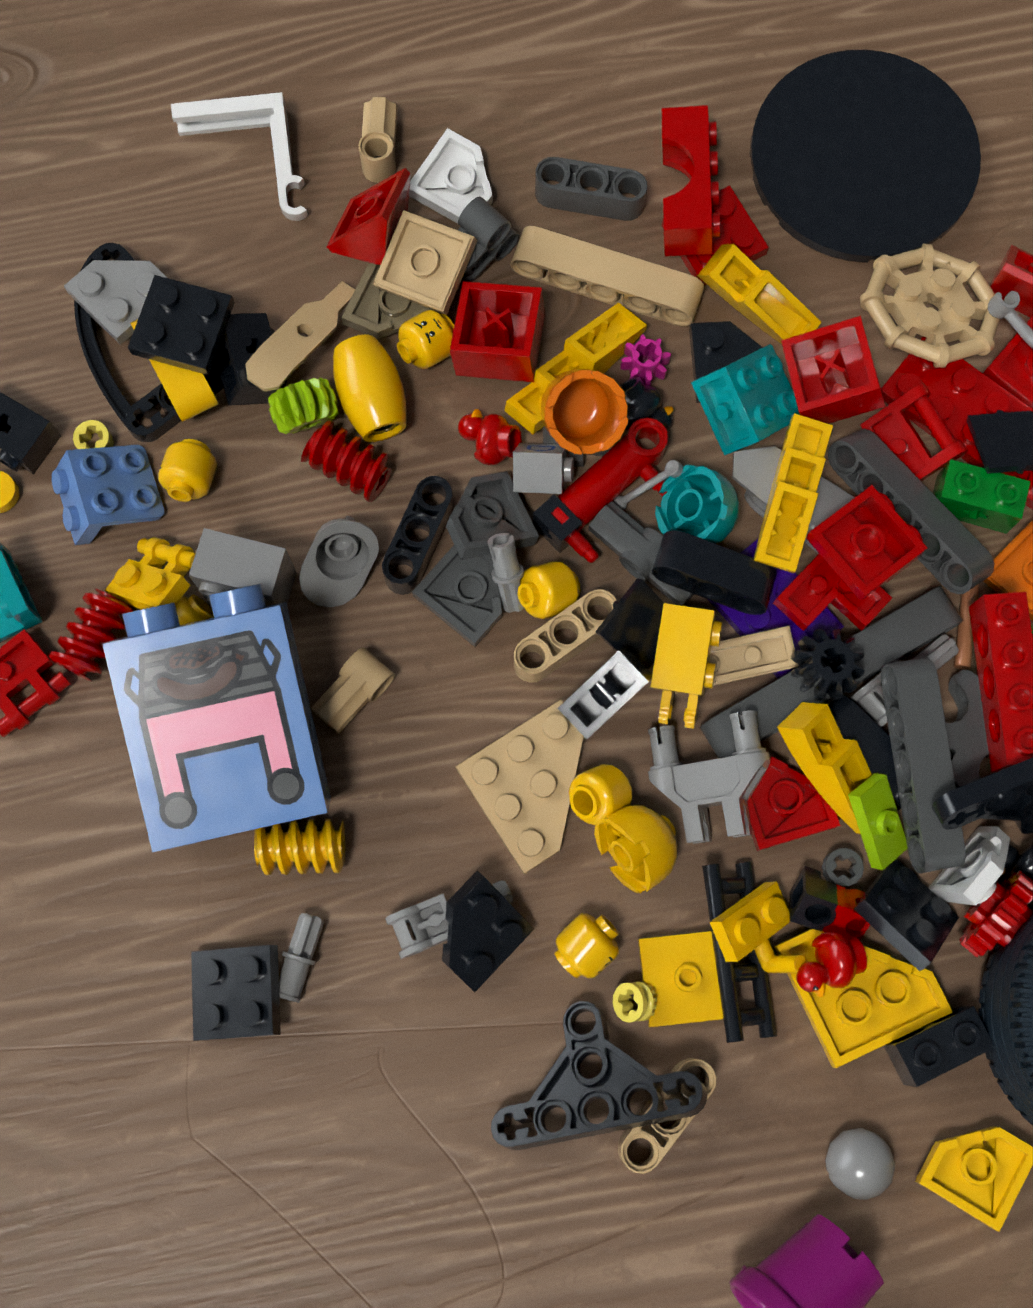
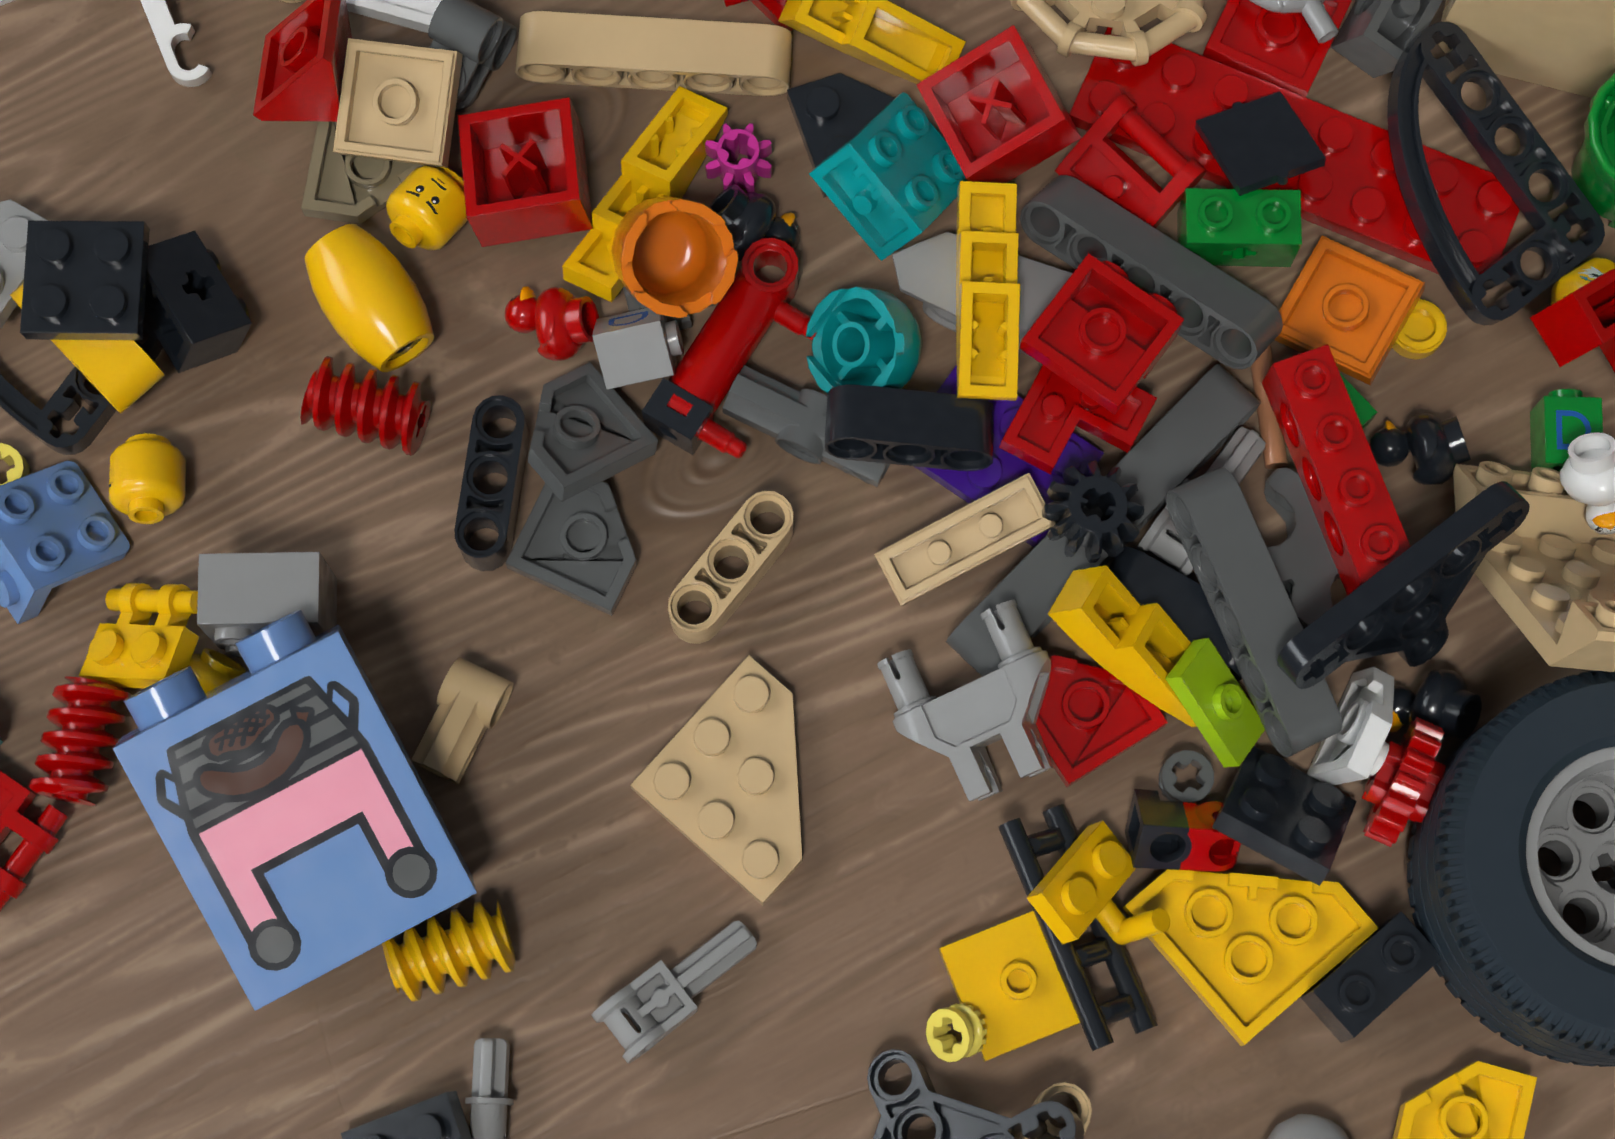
camera: 15 degrees left, 0 degrees up
(287, 348) = (243, 274): tan piece -> none
(303, 405) = (283, 346): lime gear -> none
(338, 562) = (393, 549): light grey piece -> none
(481, 931) = (725, 995): black plate -> none
(506, 570) = (628, 501): light grey axle -> none
(548, 589) = (691, 510): yellow head -> none
(587, 945) = (873, 975): yellow head -> none
(599, 793) = (836, 768): yellow head -> none
(605, 692) = (806, 628): brick -> none
(635, 622) = (829, 527): black piece -> none
(640, 845) = (906, 821): yellow cylinder -> none
(672, 468) = (815, 300): light grey hinge -> none
(684, 658) = (900, 554): yellow hinge -> none
(835, 963) = (1207, 906): red animal -> none

